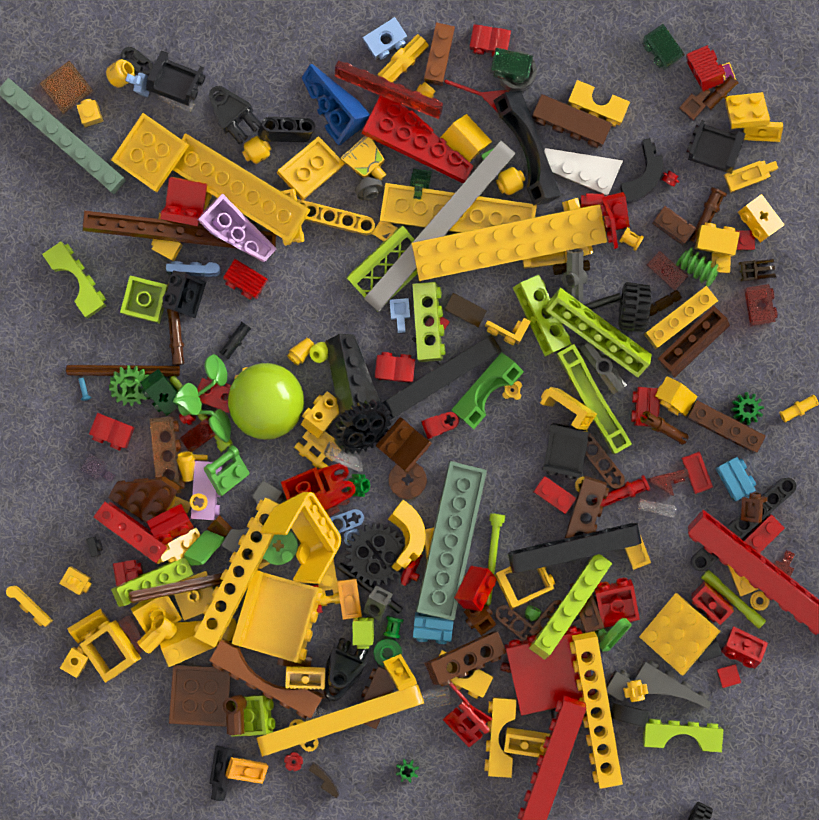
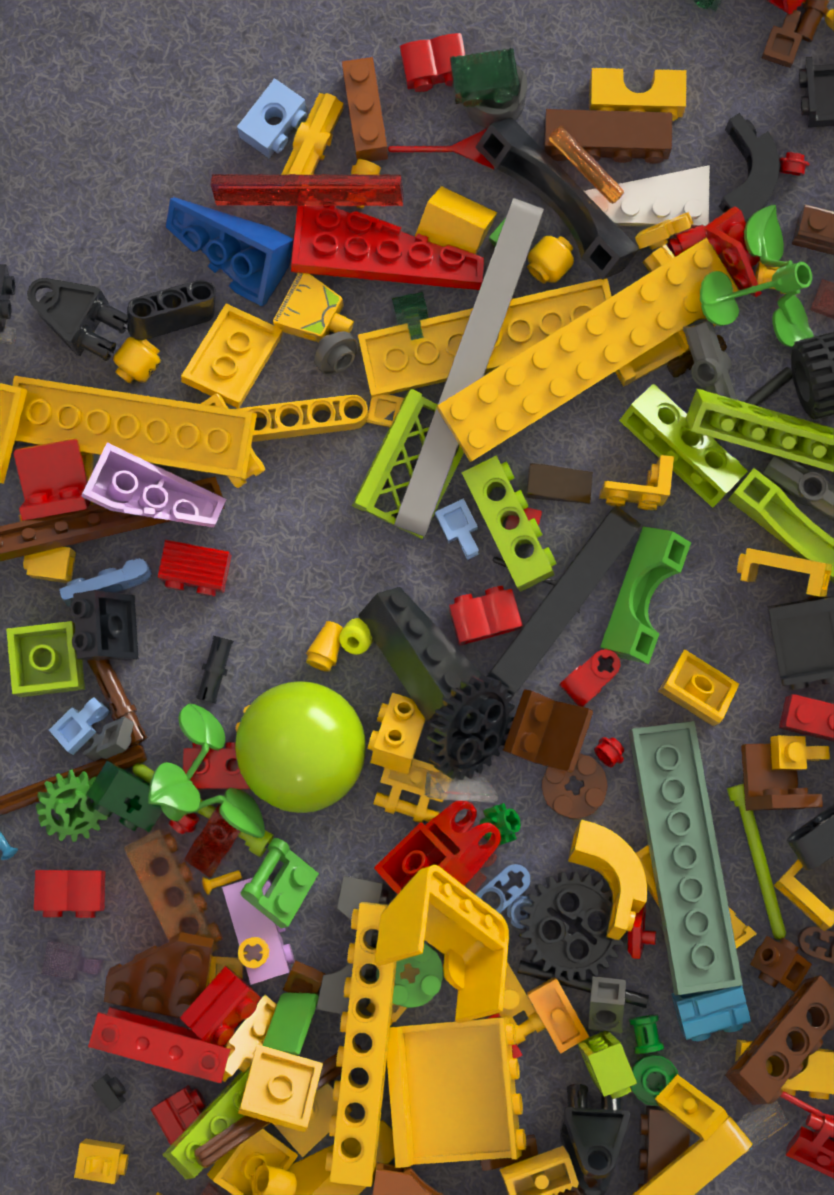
camera: 20 degrees left, 5 degrees down
(147, 343) = (75, 727): none -> light blue plate
(165, 358) = (112, 741): none -> dark grey plate
(186, 465) = (211, 900): yellow cone -> none
(186, 578) = (280, 1088): none -> yellow plate
(434, 468) = (609, 751): none -> red plate
(475, 588) = (756, 918): red brick -> none
(497, 452) = (699, 688): none -> yellow slope
(516, 394) = (690, 584): yellow plate -> none
(516, 517) = (772, 788): none -> reddish brown bracket
(533, 508) = (793, 754): none -> yellow plate
(551, 135) = (586, 165): none -> clear orange axle
(575, 190) = (657, 234): none -> yellow plate
(634, 217) = (765, 241): none -> bright green plant

